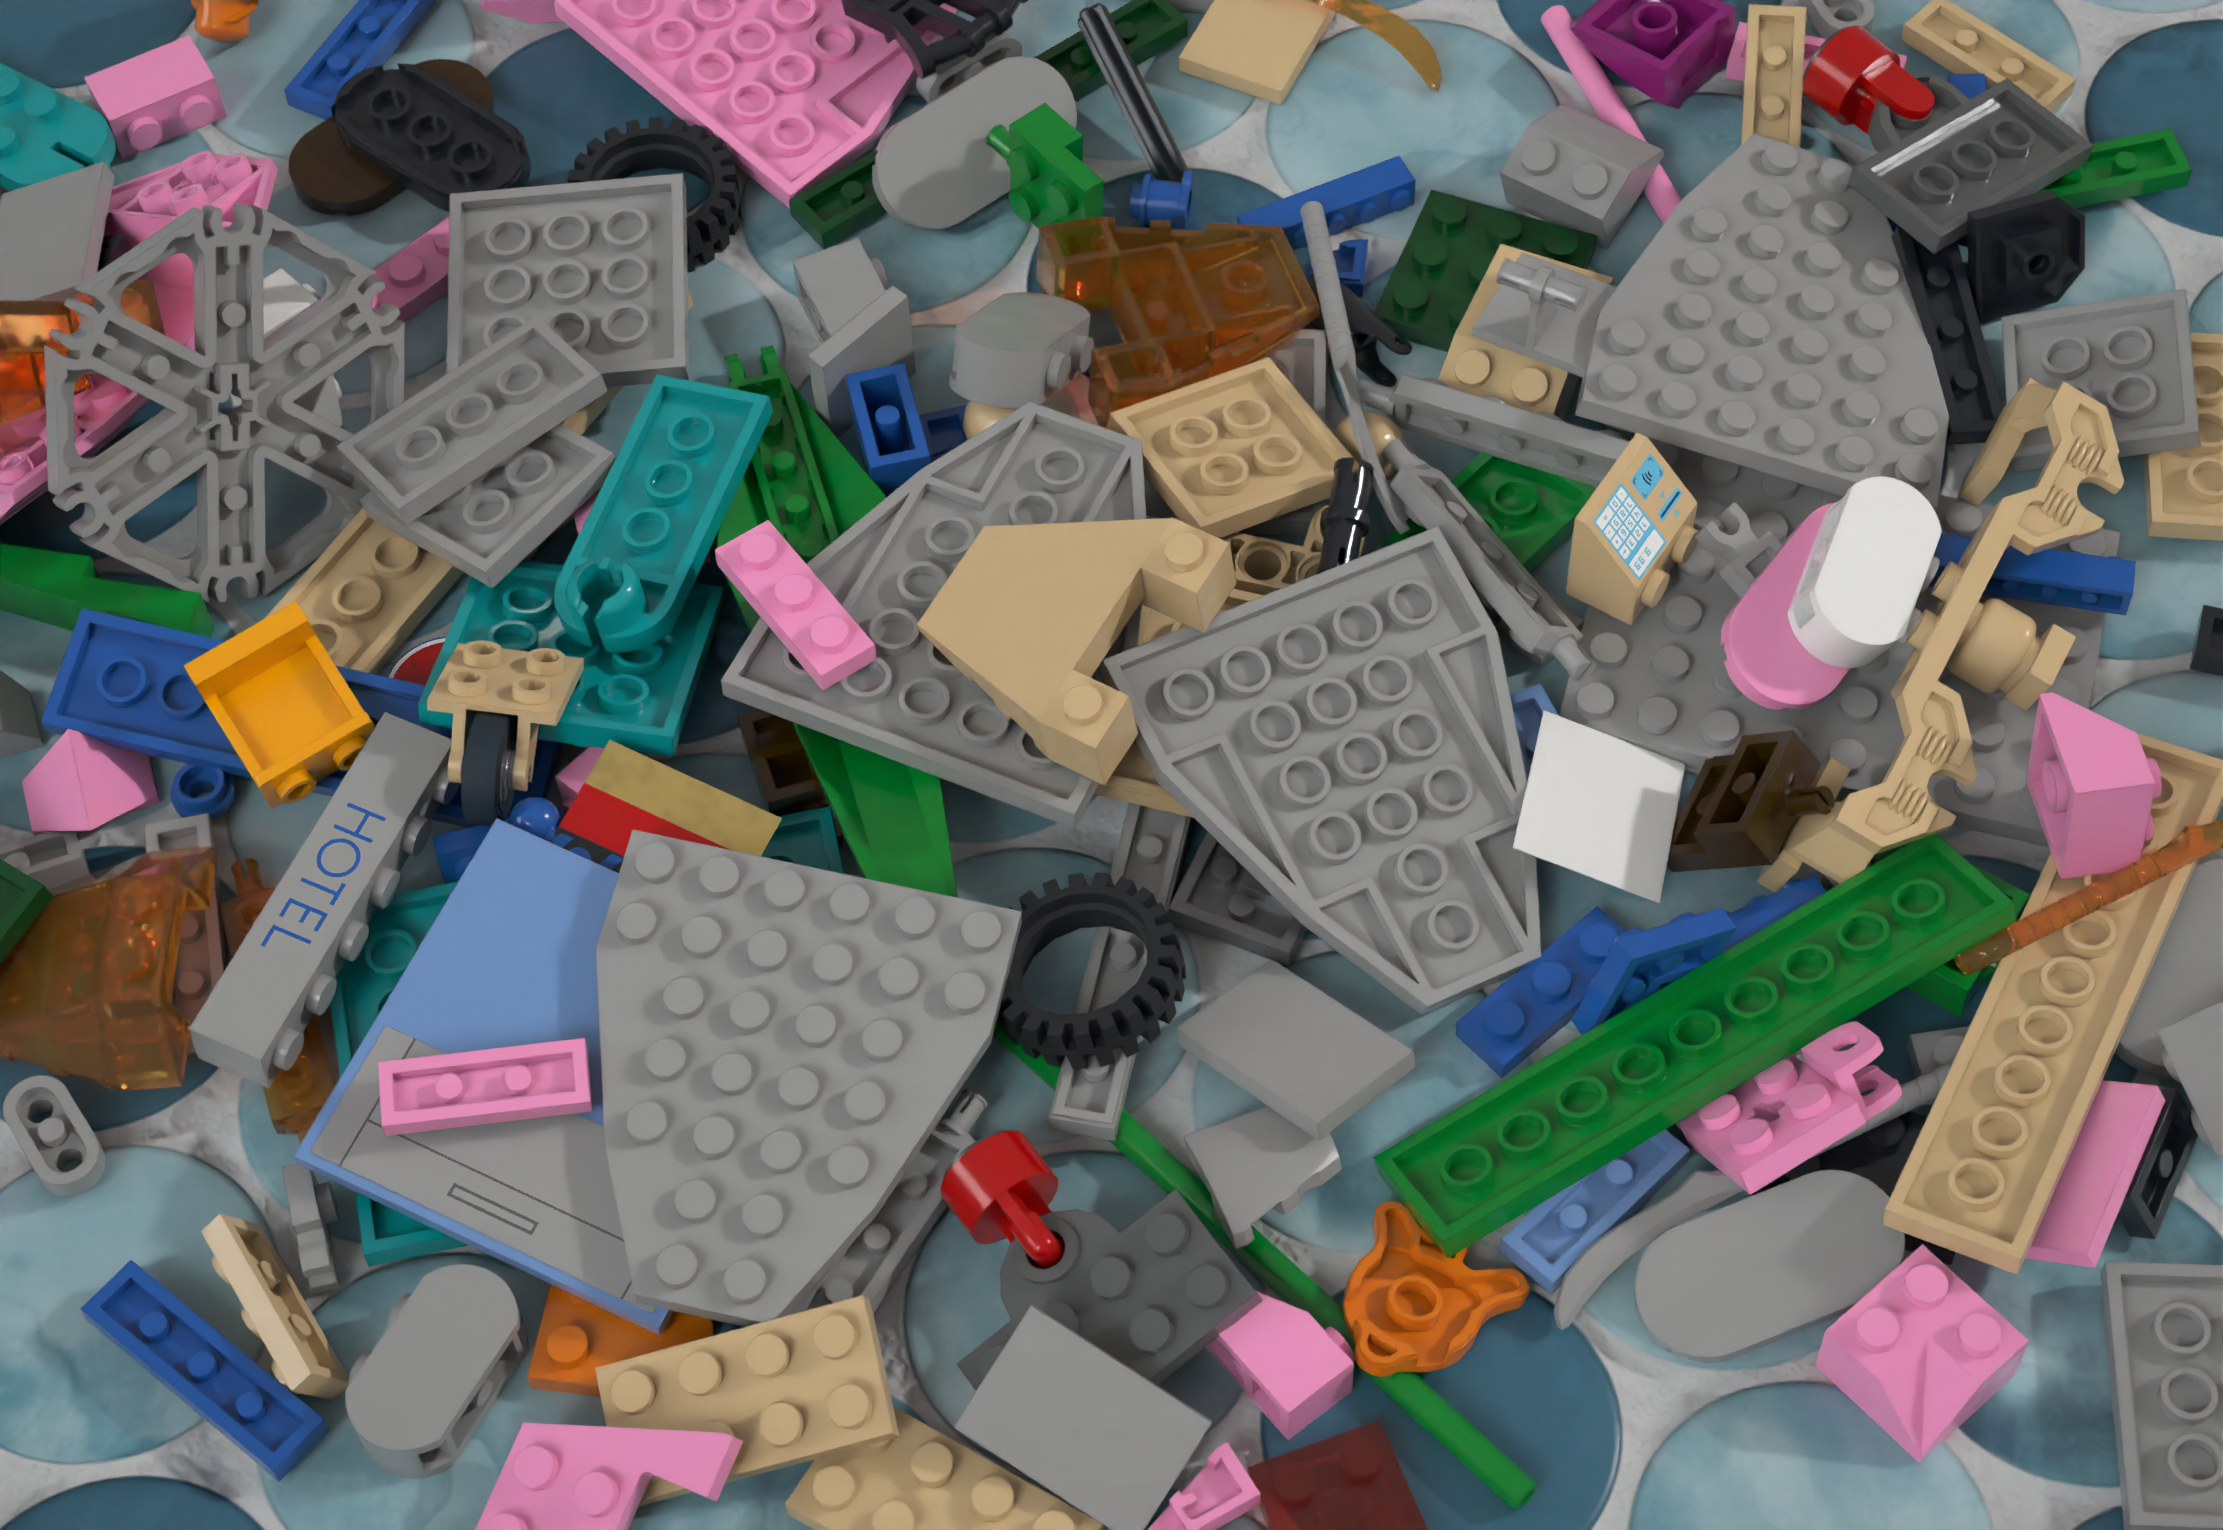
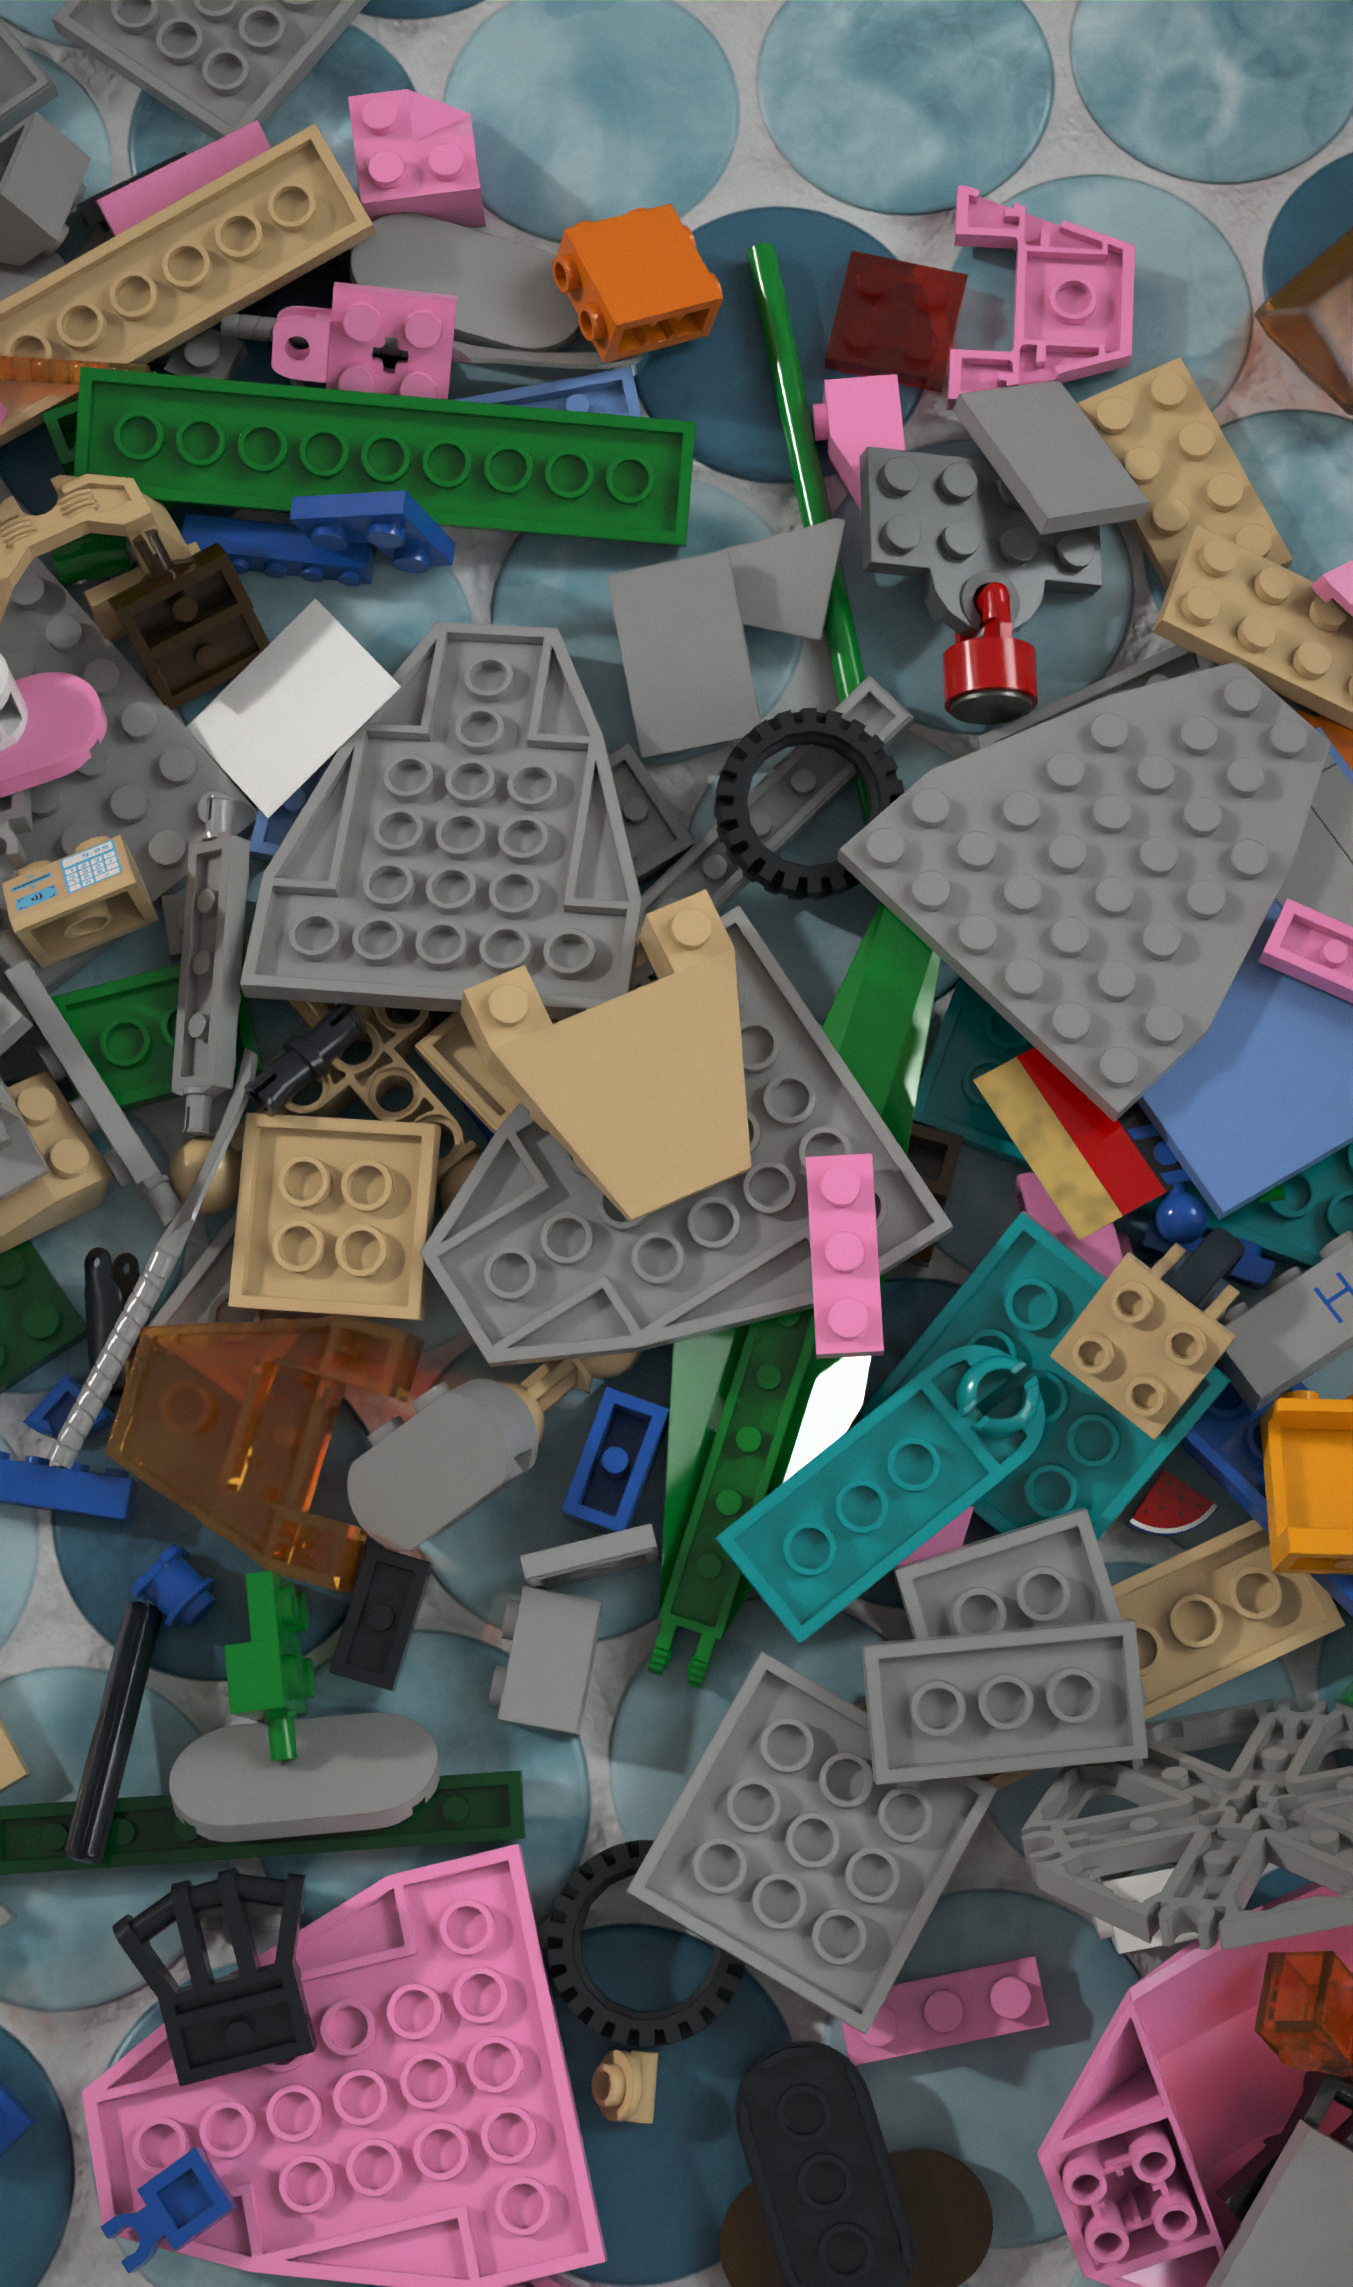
camera: 145 degrees left, 20 degrees up
(607, 113) = (626, 2085): none -> tan plate
(943, 430) = (555, 1465): blue tile -> none
(994, 259) = (381, 1618): none -> black plate
(1414, 1304) = (744, 422): orange tile -> none
(1539, 996) = (409, 605): blue plate -> none
(1608, 1349) = (637, 282): none -> orange brick

